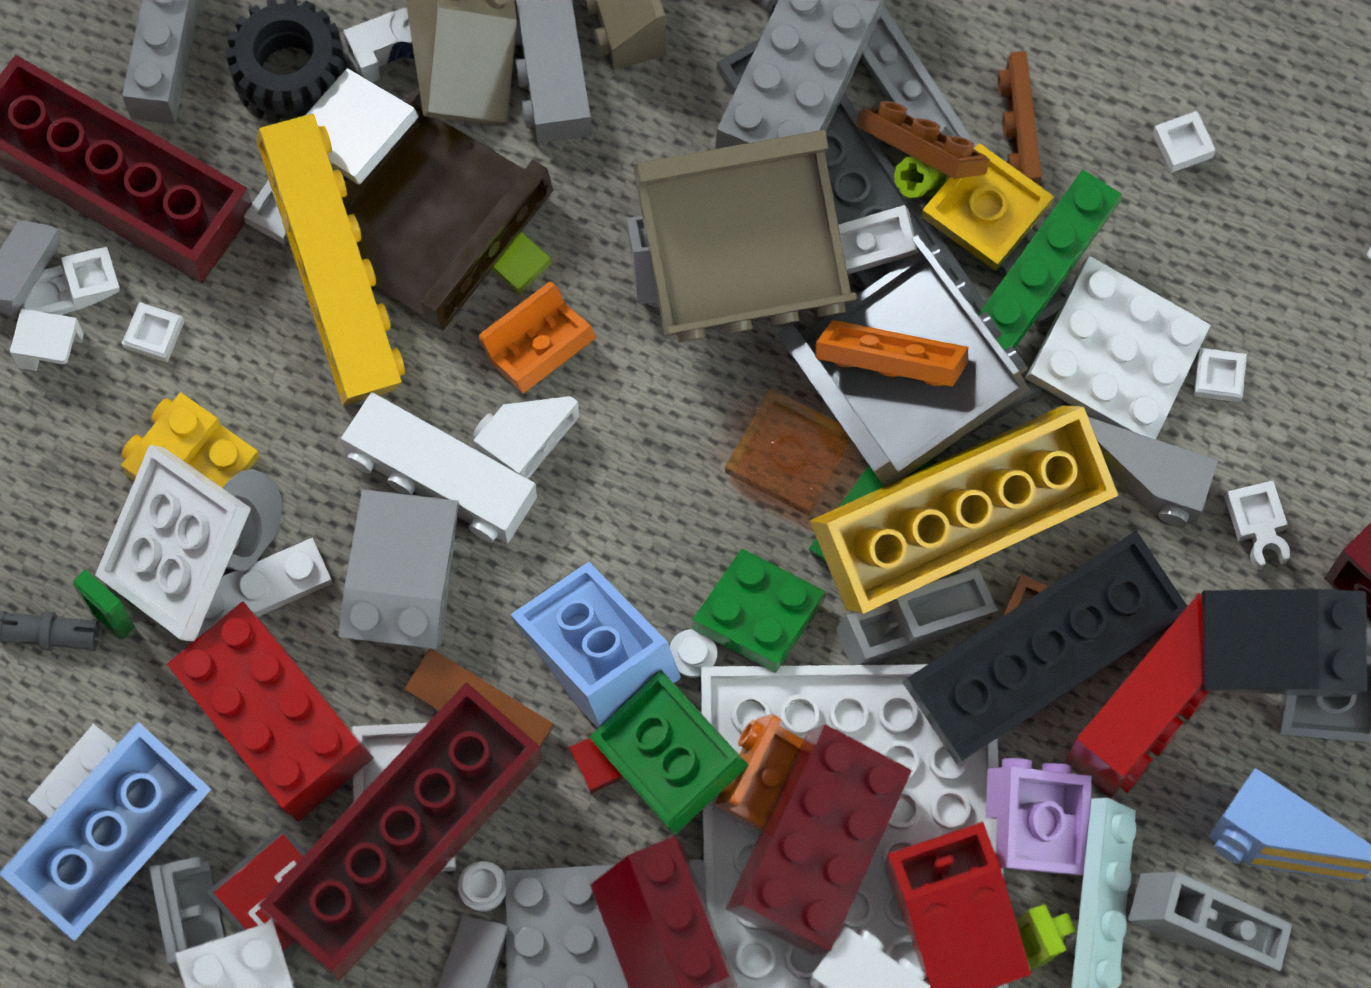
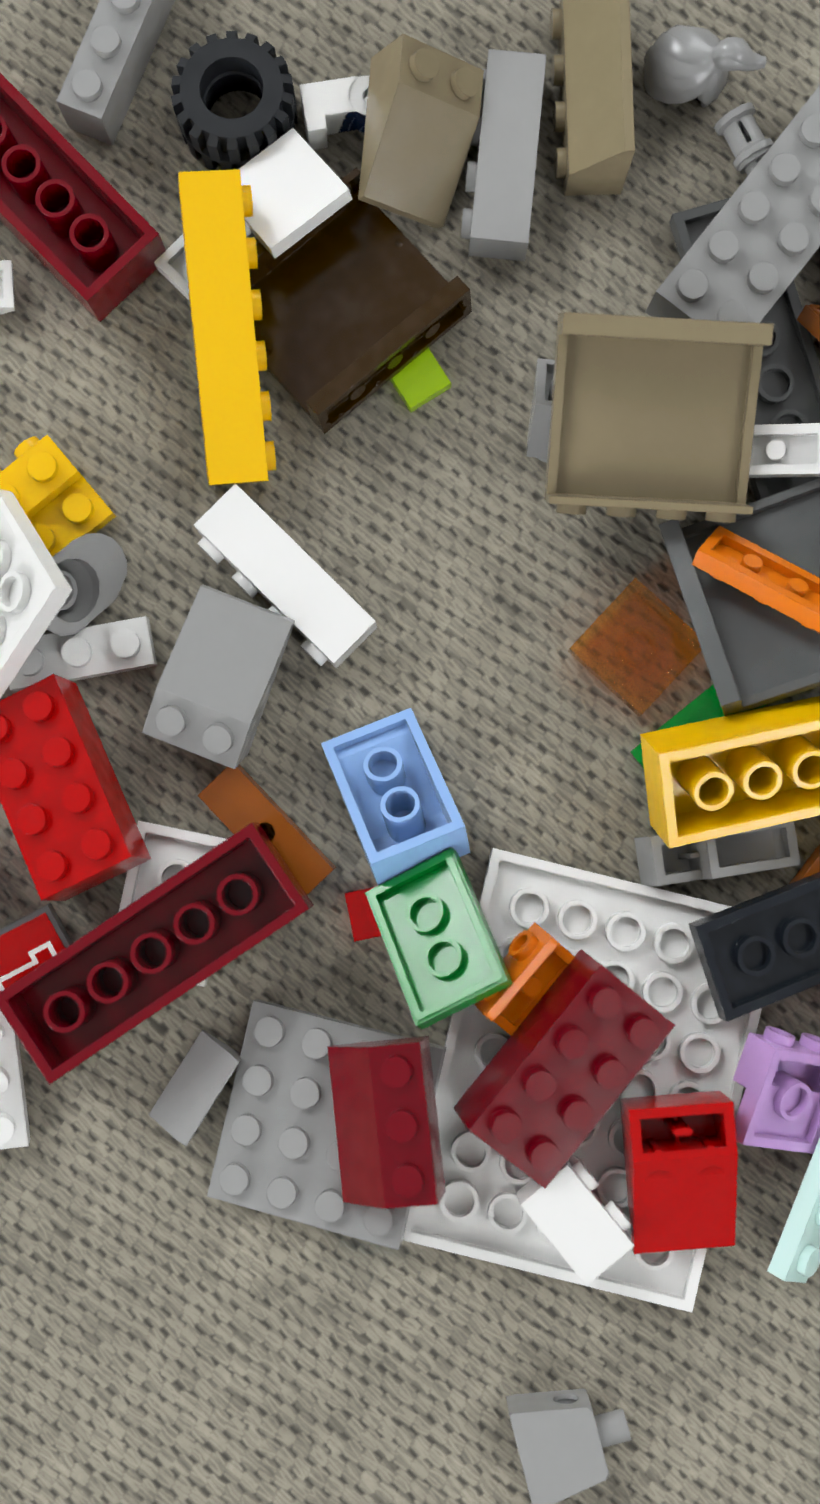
camera: 15 degrees right, 15 degrees up
(153, 332) = (39, 361): white tile -> none
(482, 886) = (227, 1008): white plate -> none
(525, 432) = (377, 563): white slope -> none
(535, 338) = (415, 465): orange bracket -> none
(692, 652) = (489, 828): white plate -> none
(758, 610) = (564, 803): green plate -> none
(1043, 935) = (757, 1203): lime tile -> none

